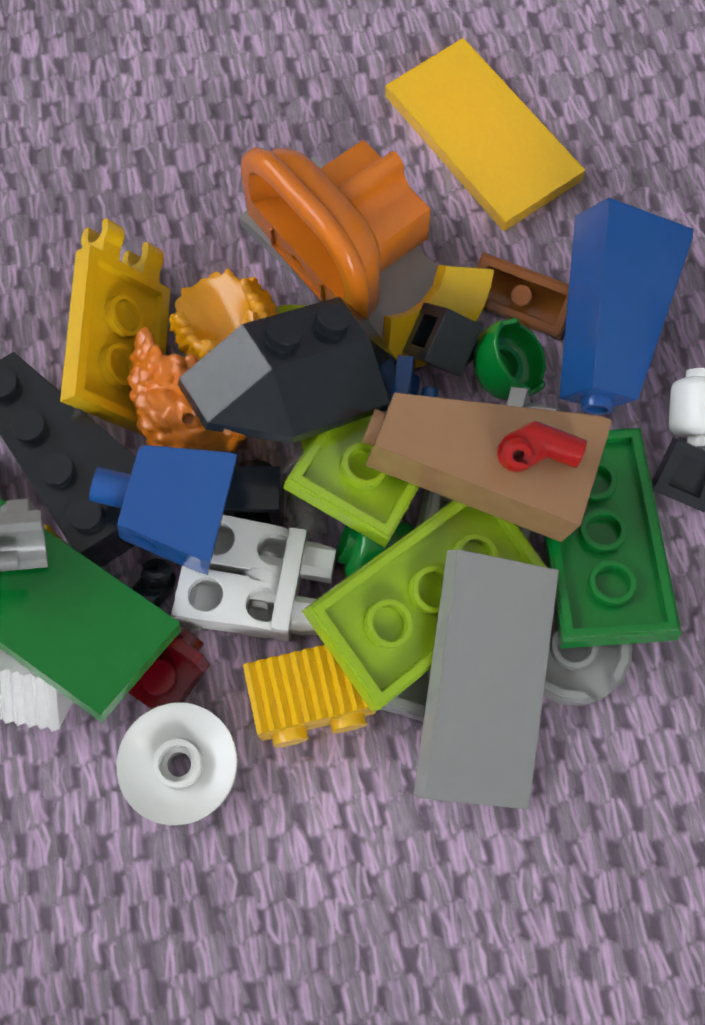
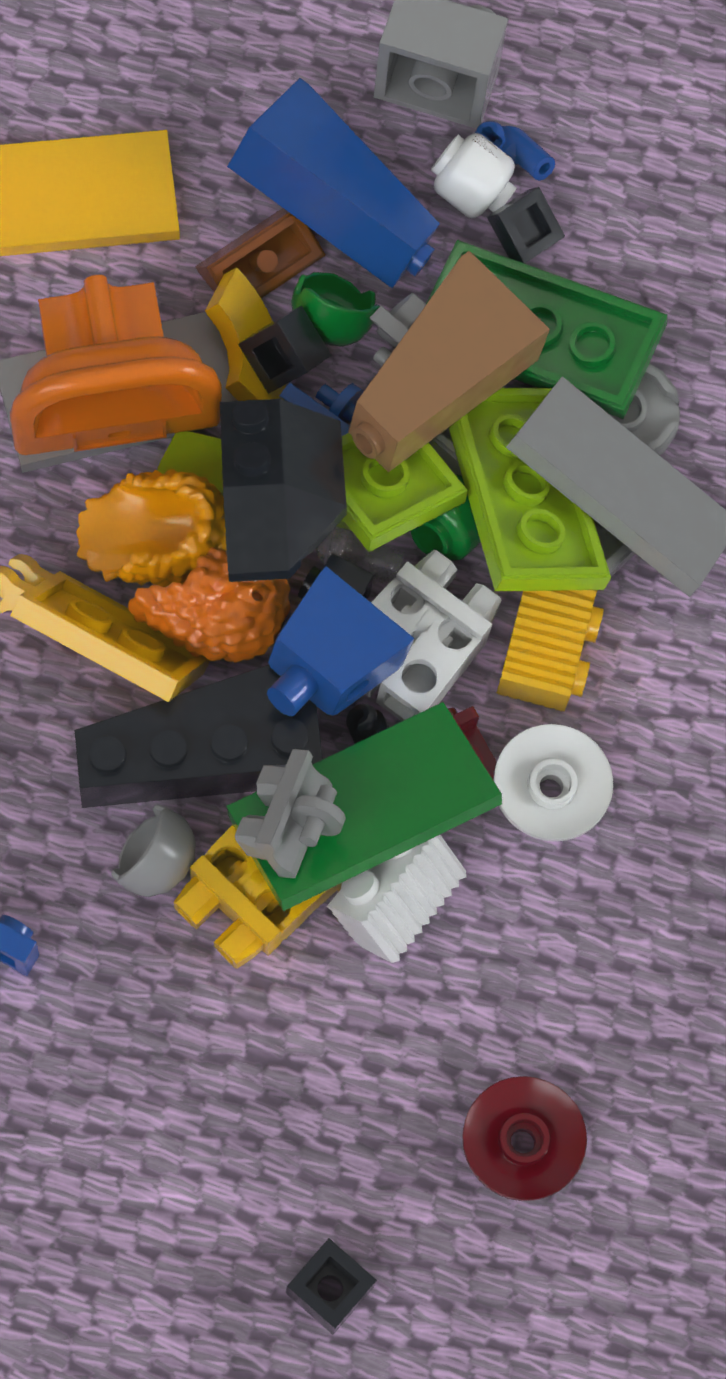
camera: 75 degrees left, 0 degrees up
(535, 443) = (465, 317): red arm -> none

